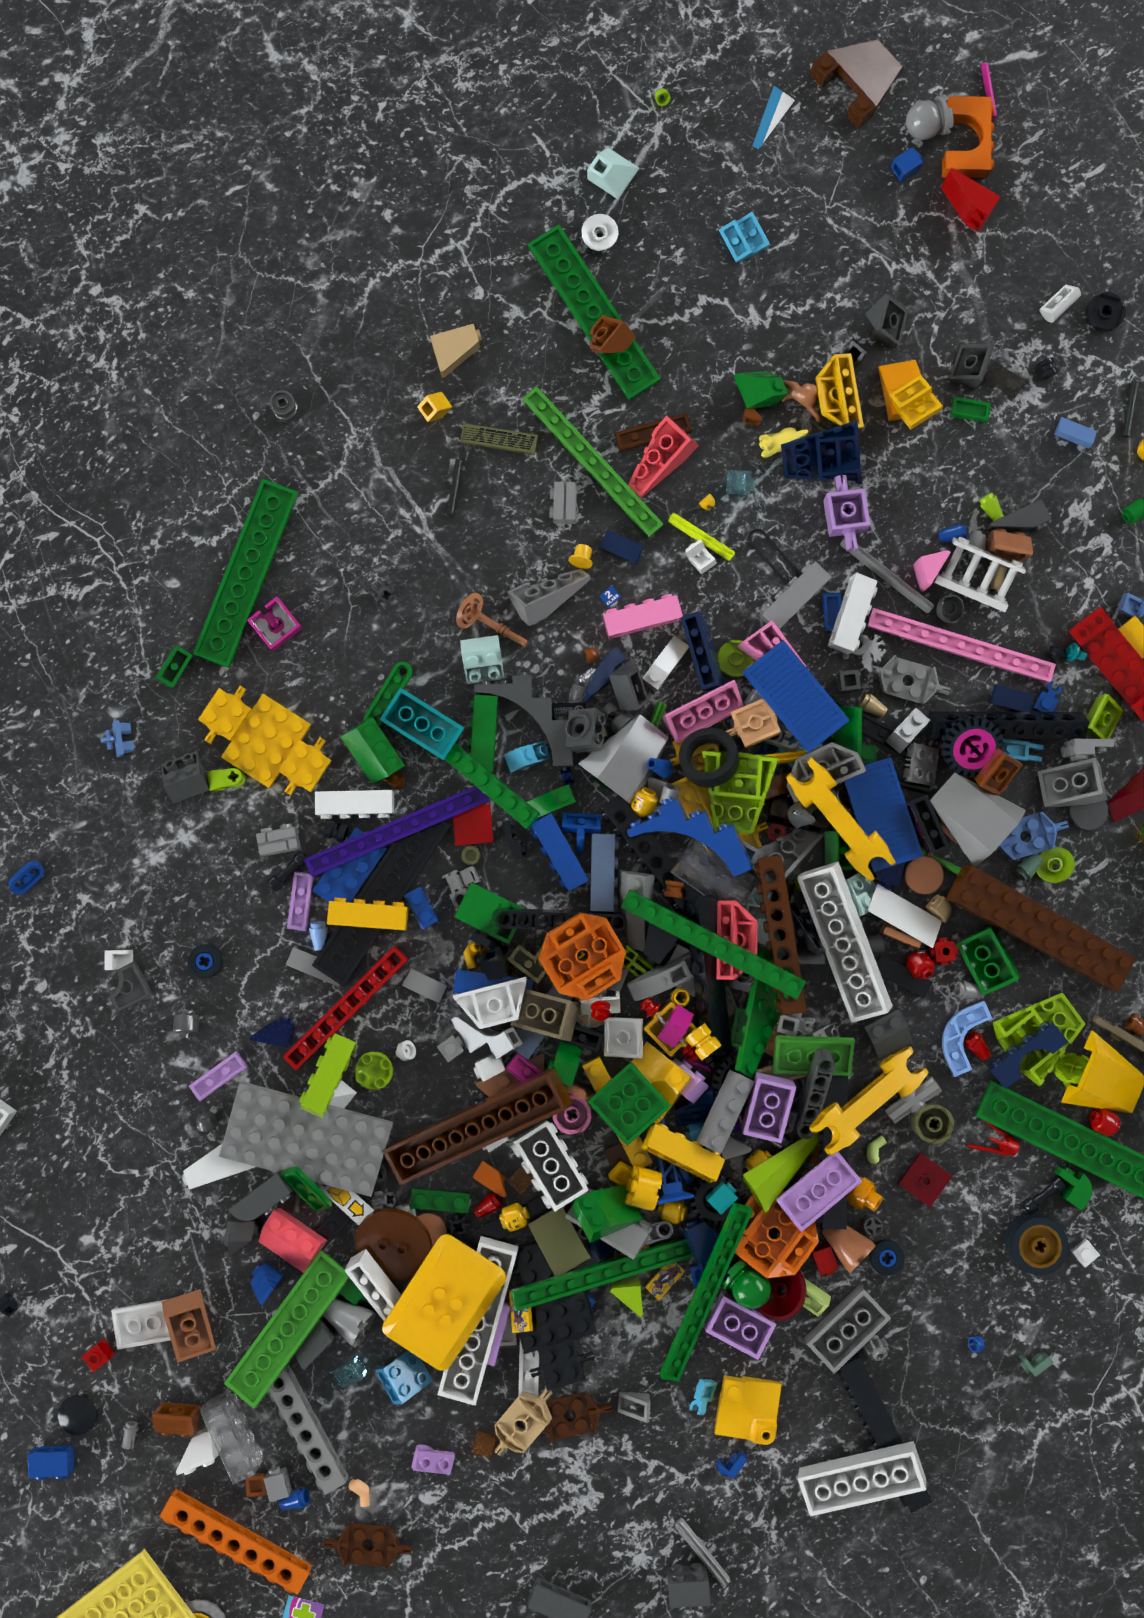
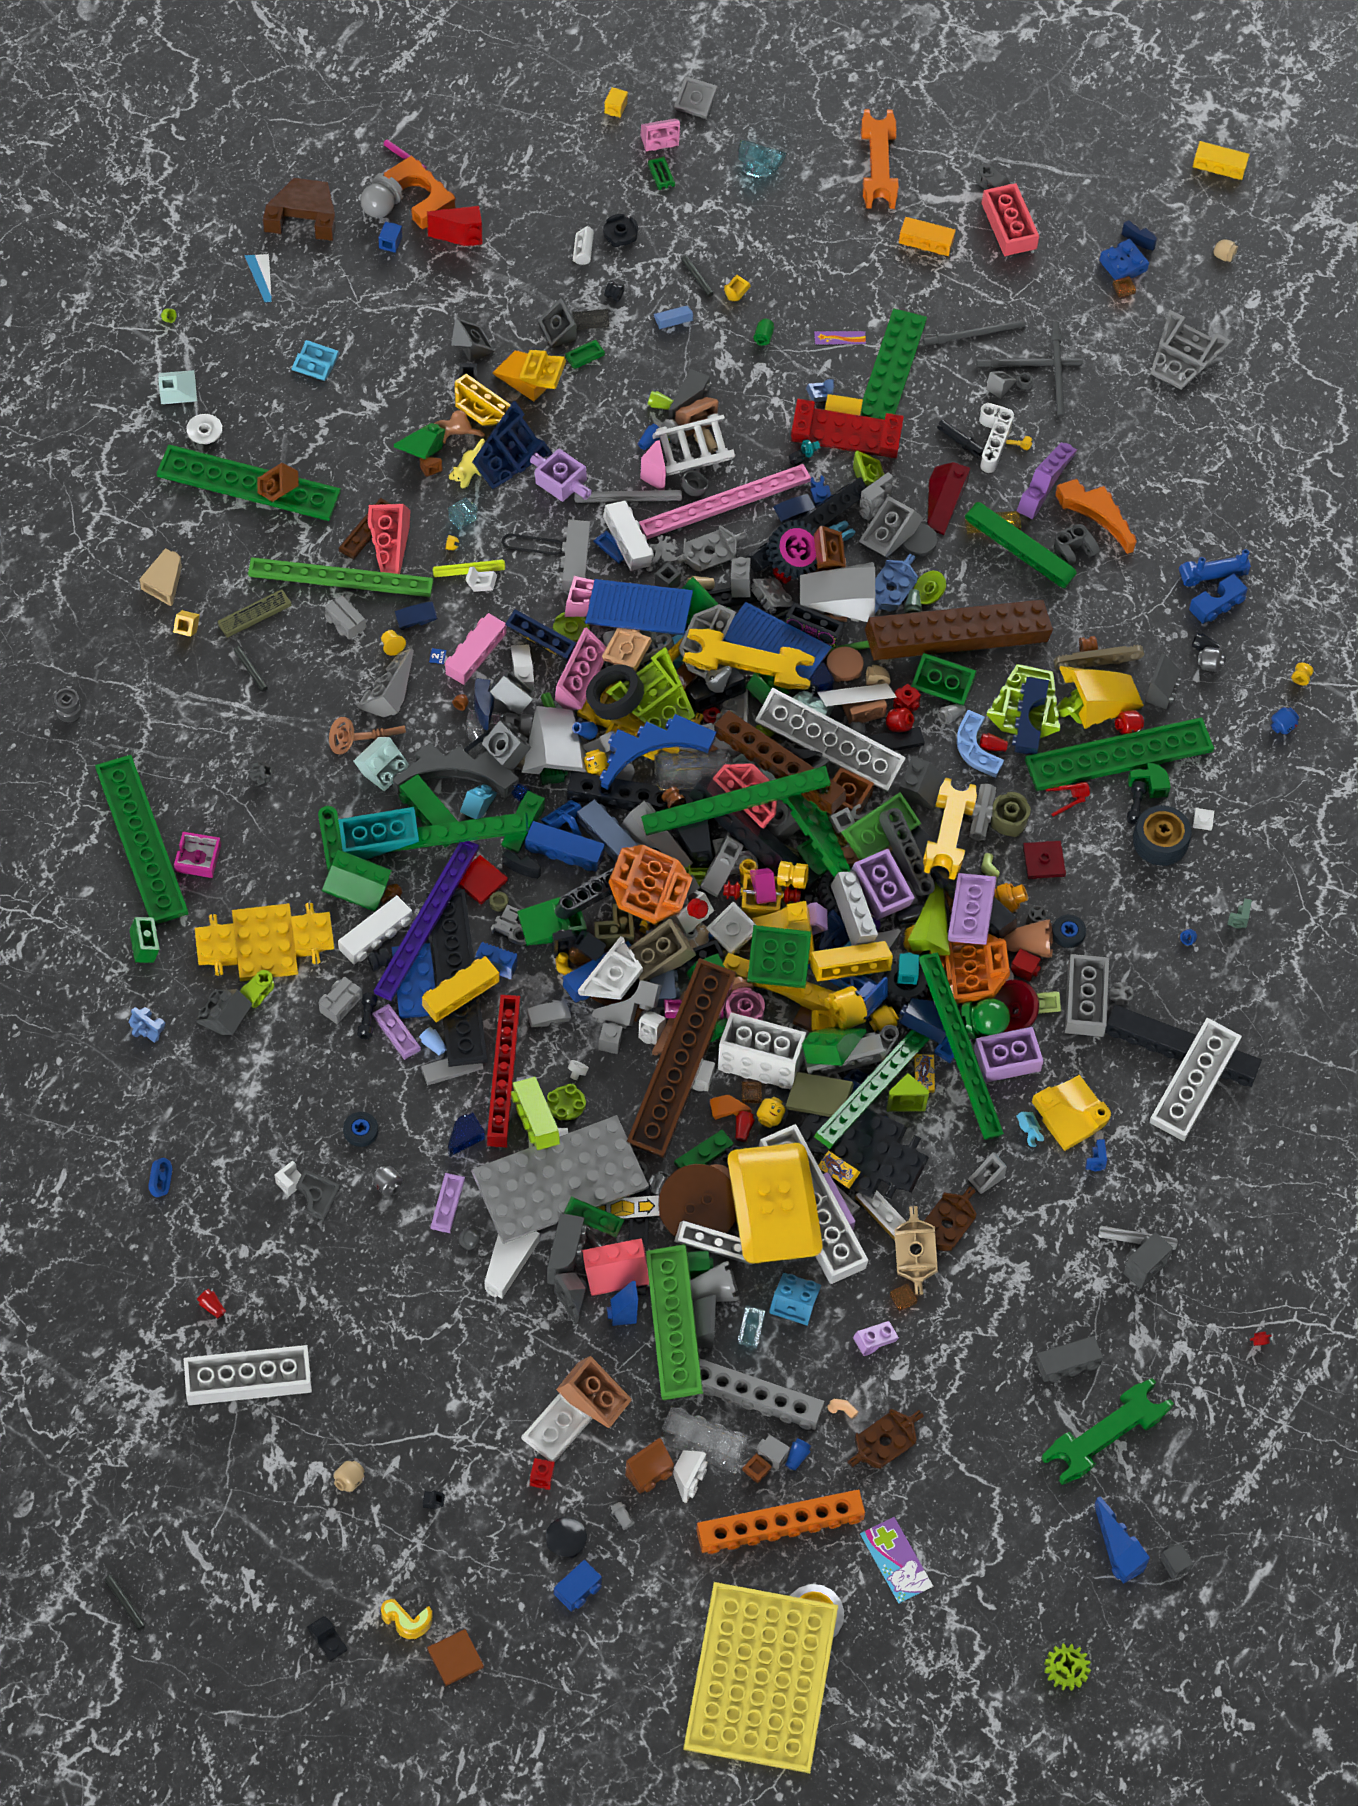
camera: 45 degrees left, 25 degrees down
(821, 996) = (857, 790): none -> dark orange brick

